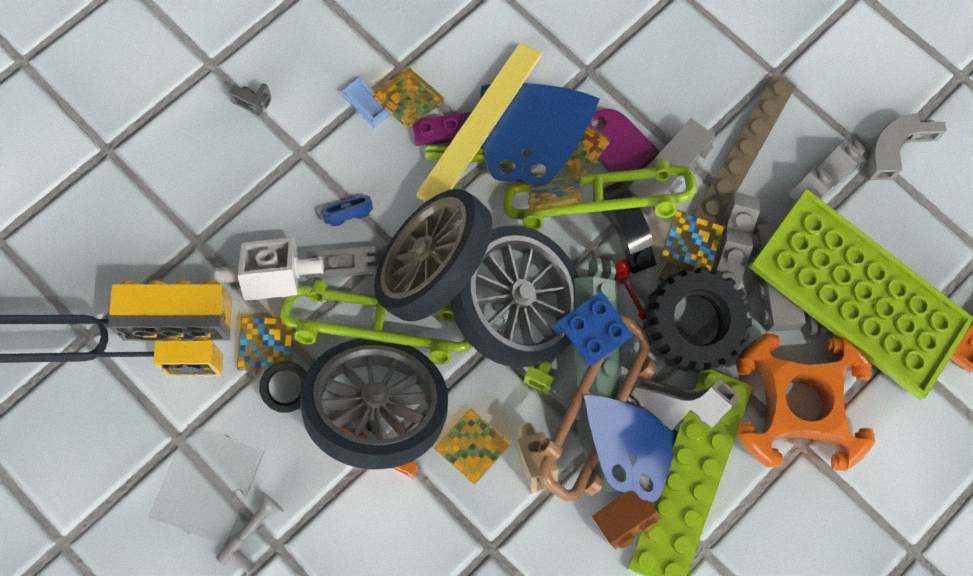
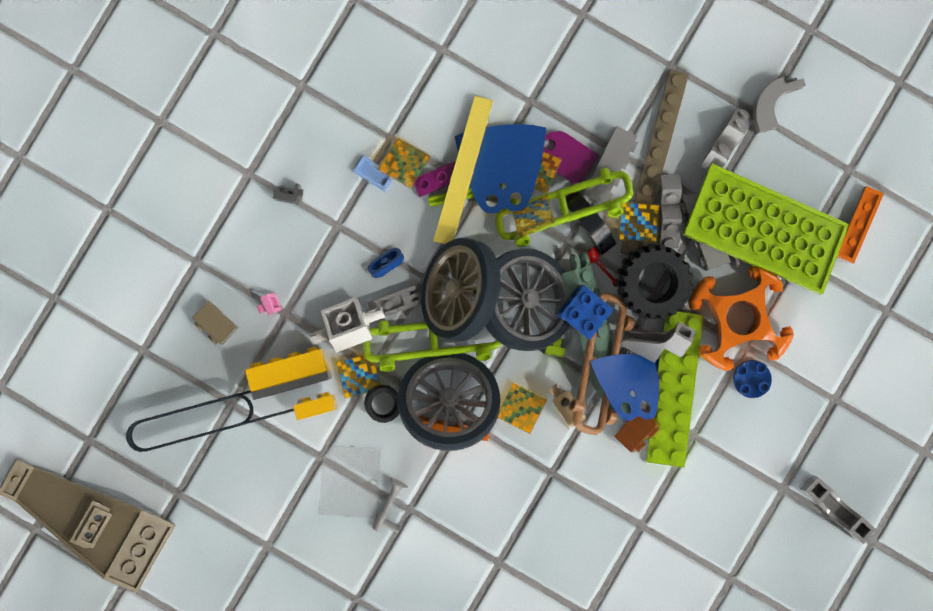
camera: 15 degrees left, 15 degrees up
(100, 226) = (215, 323): none -> dark tan brick
(179, 221) = (270, 304): none -> bright pink tile
(803, 491) = (752, 379): none -> blue dish

